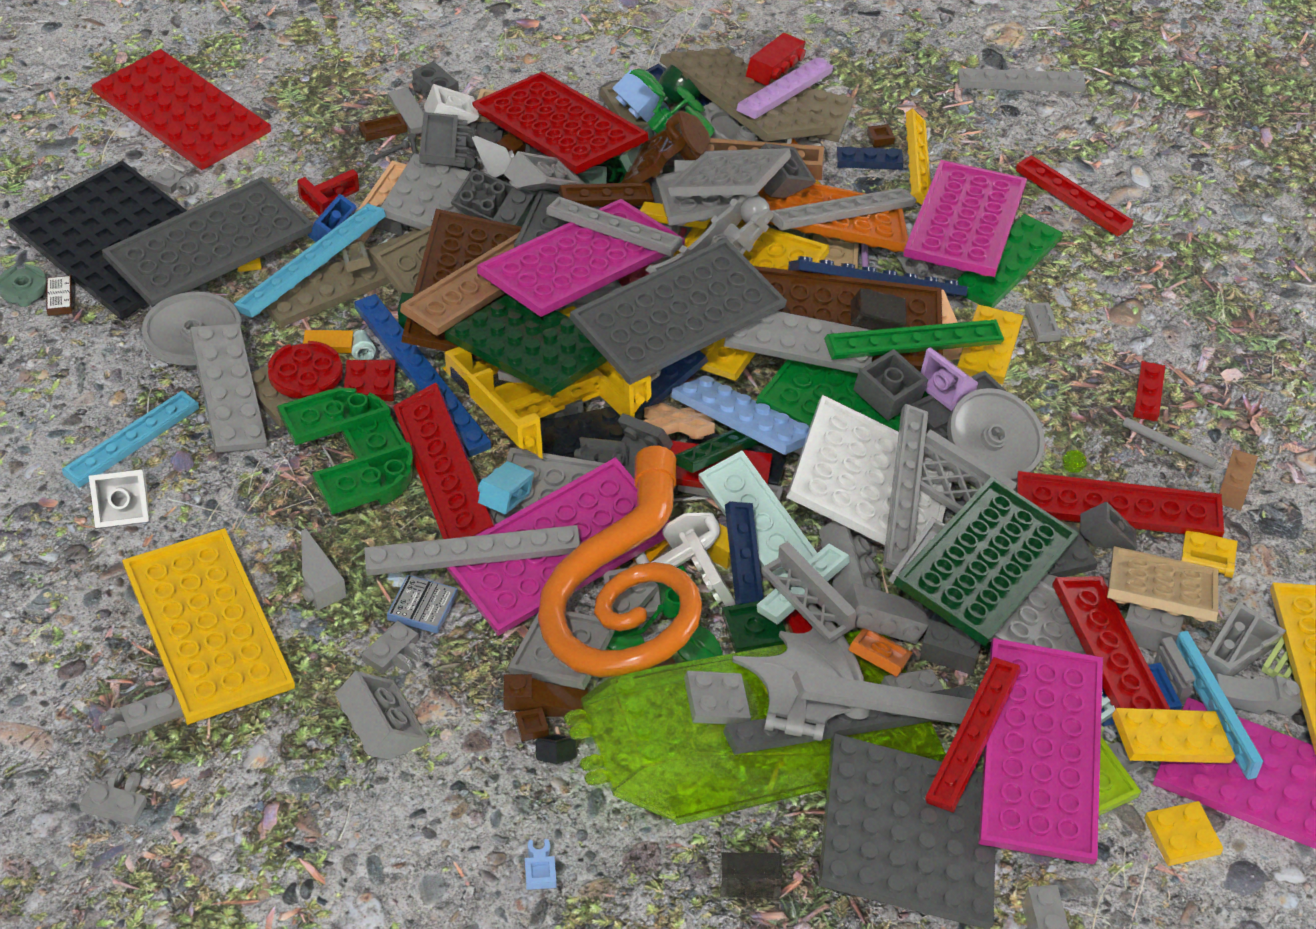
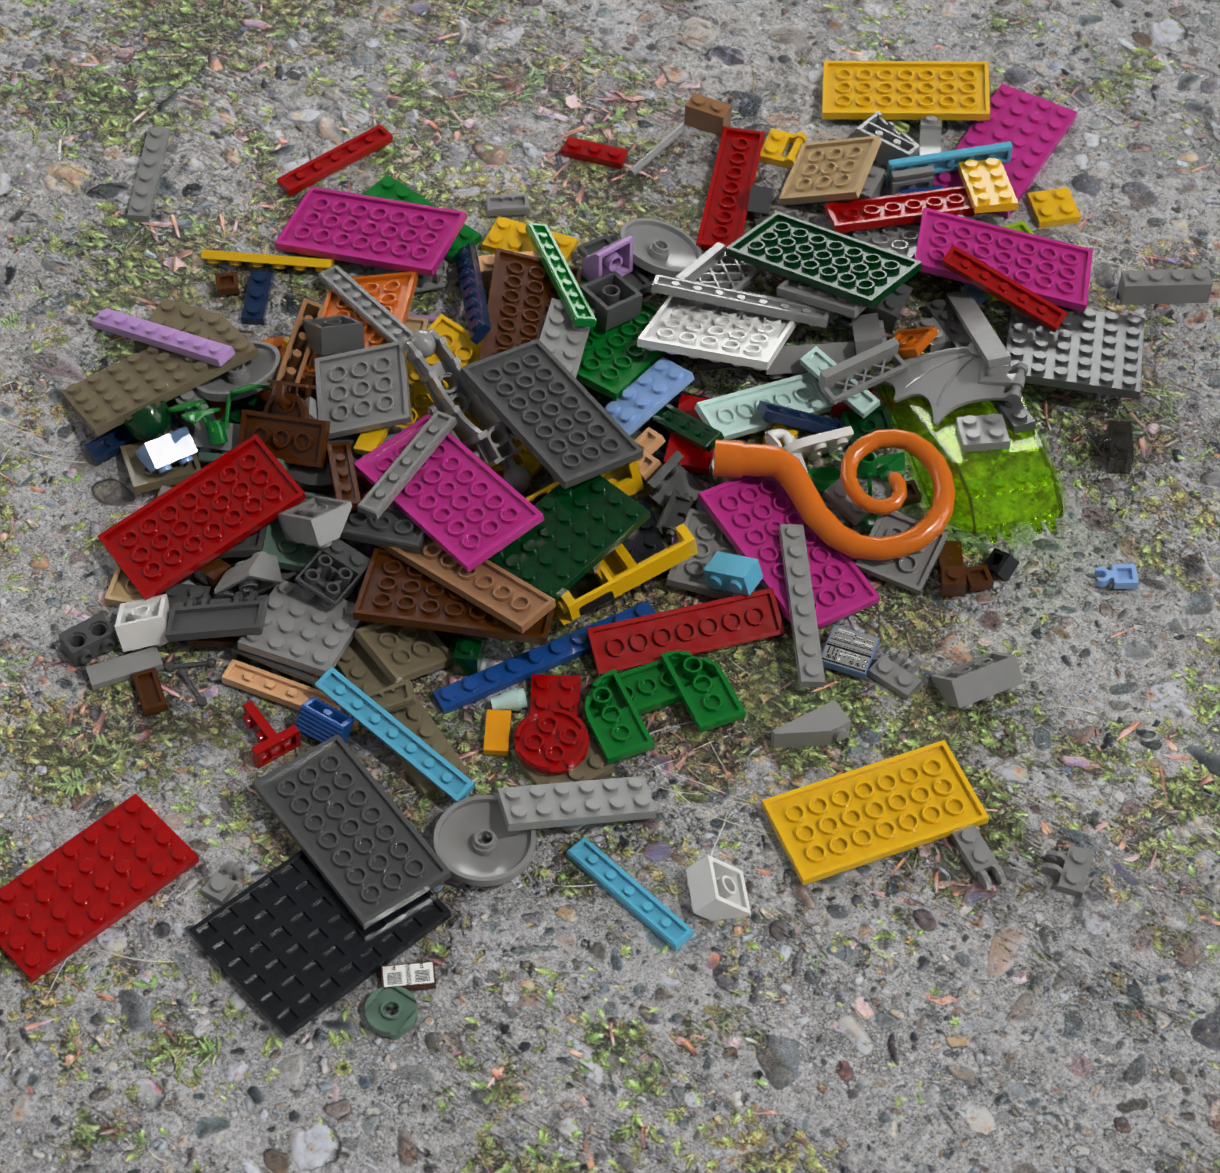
camera: 85 degrees left, 5 degrees up
(730, 173) = (363, 357): light grey plate -> none
(776, 59) = (104, 344): red brick -> none
(877, 310) = (537, 287): clear smoke brick -> none
(1074, 461) = (678, 210): clear neon green plate -> none

